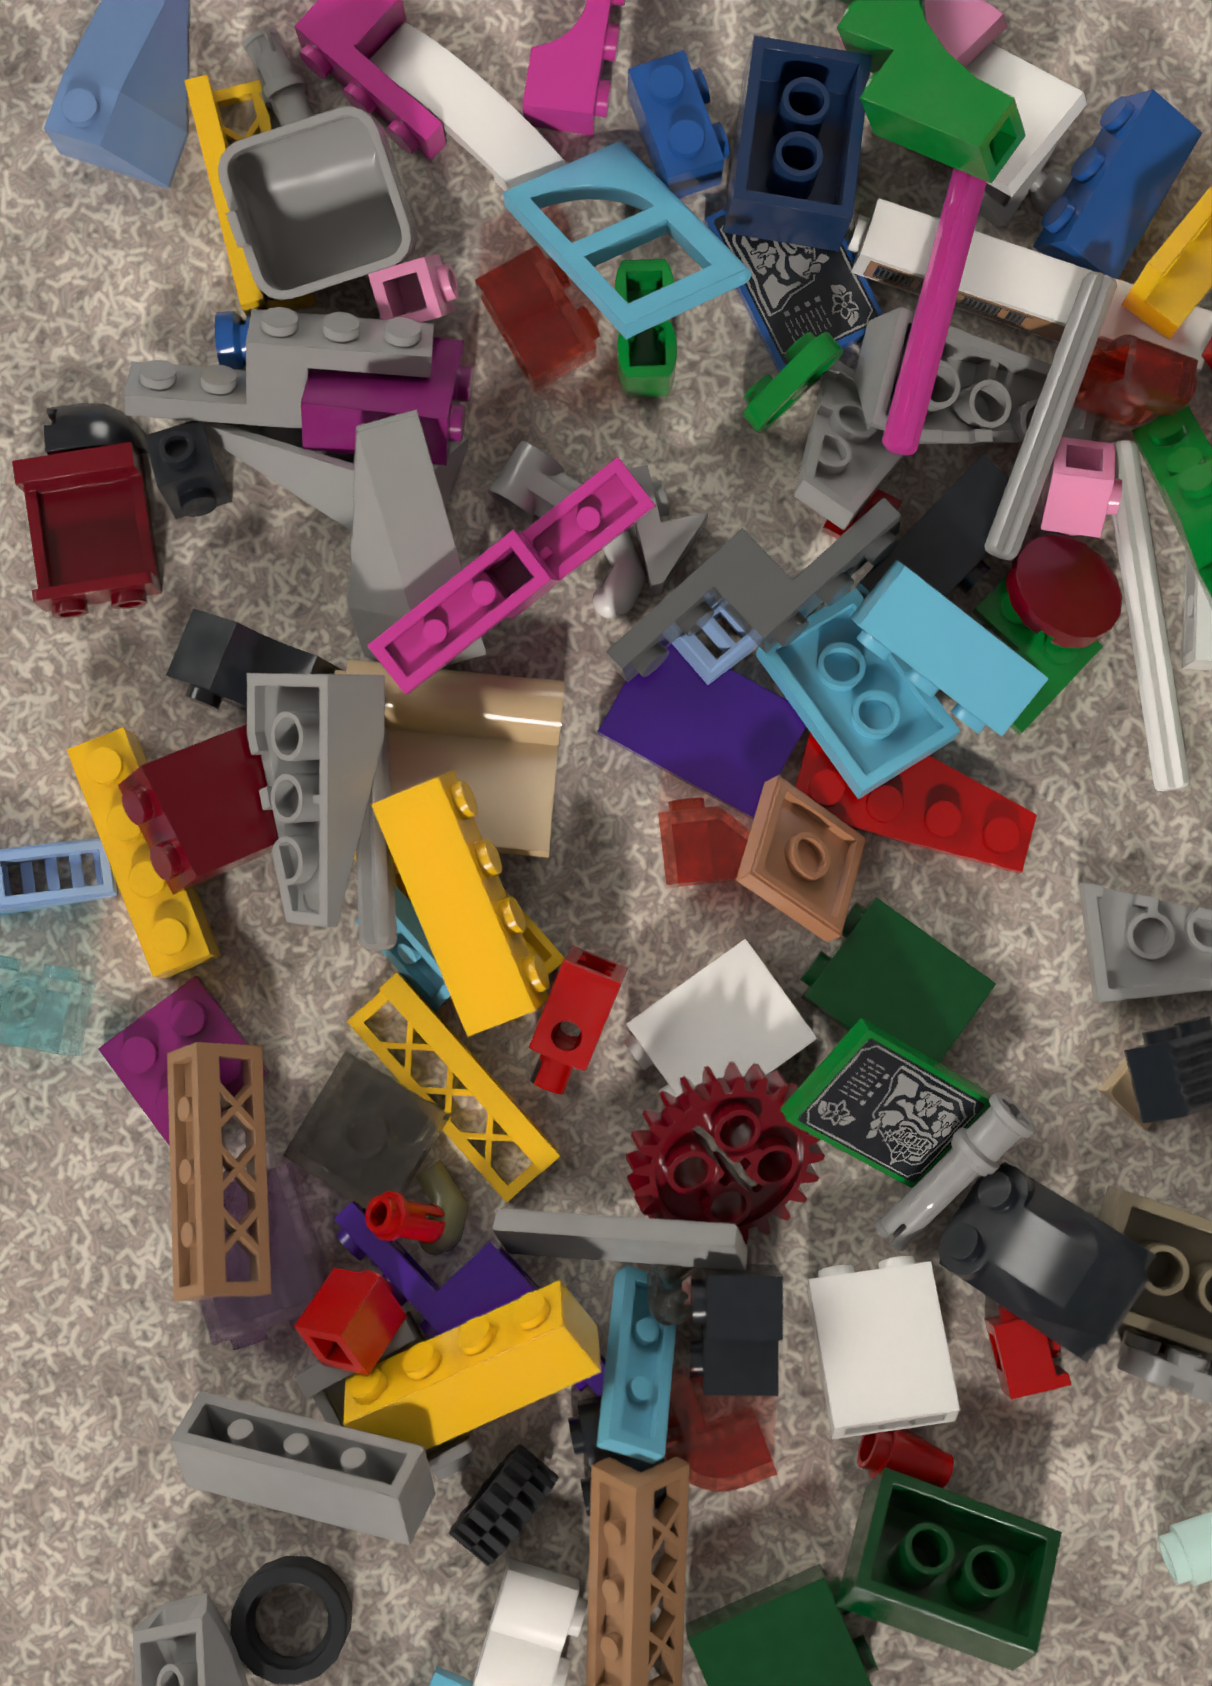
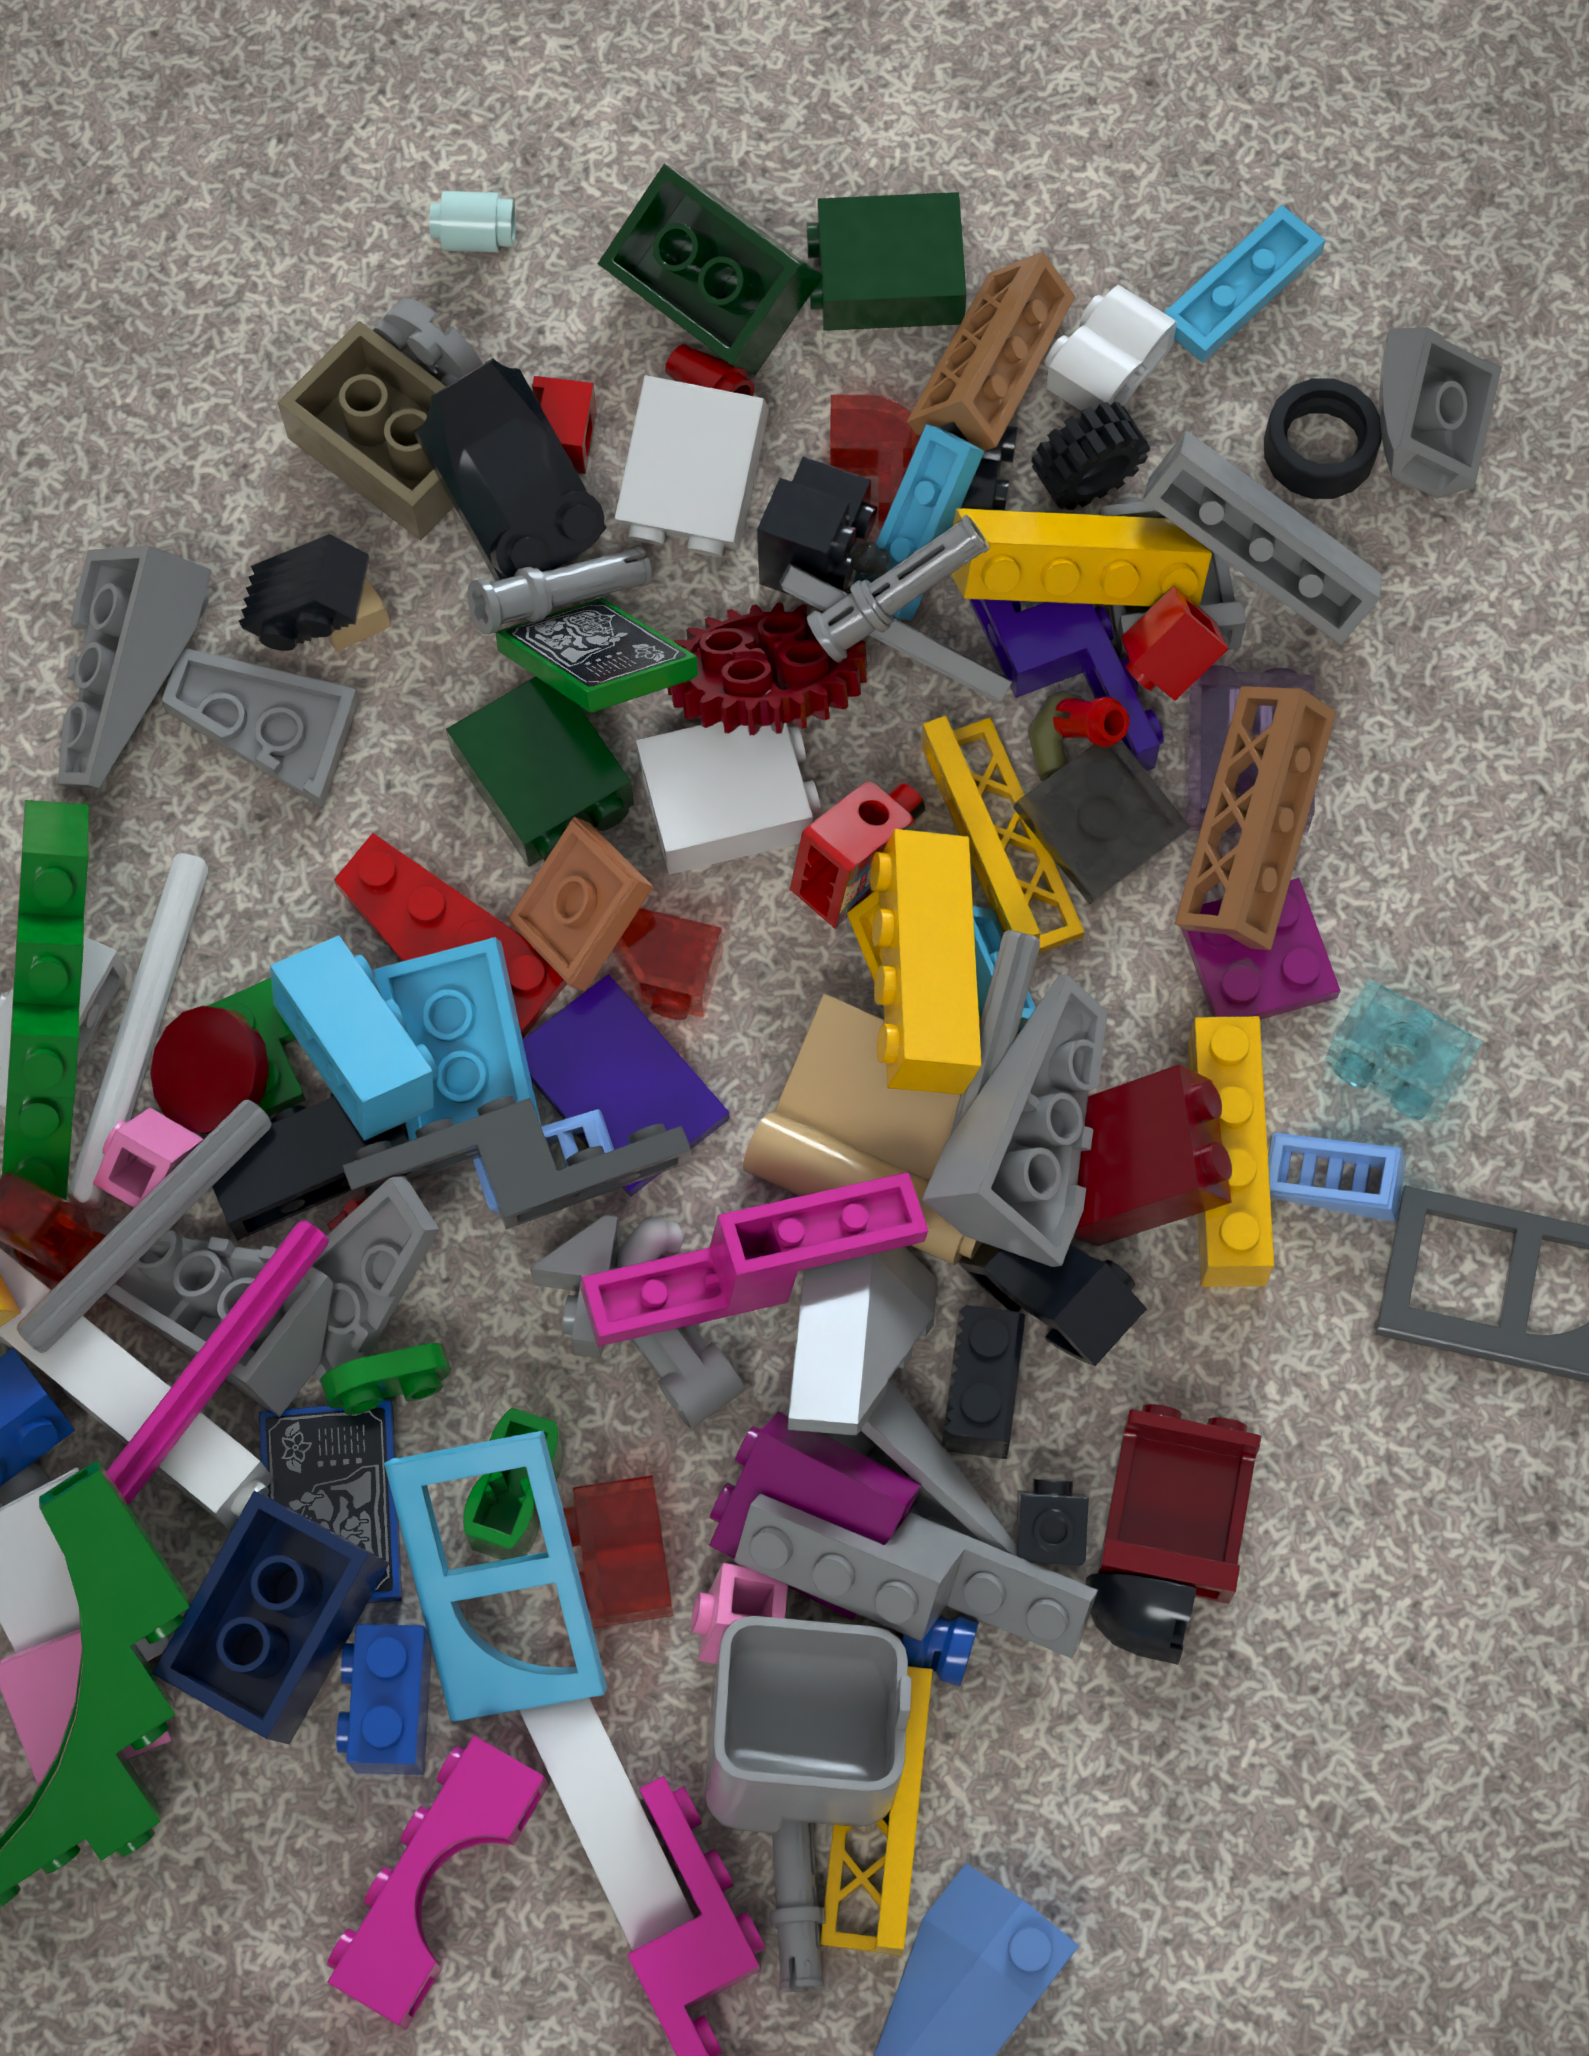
camera: 160 degrees left, 15 degrees down
(286, 568) = (983, 1382): none -> black brick
(634, 1227) = (873, 604): none -> light grey pin

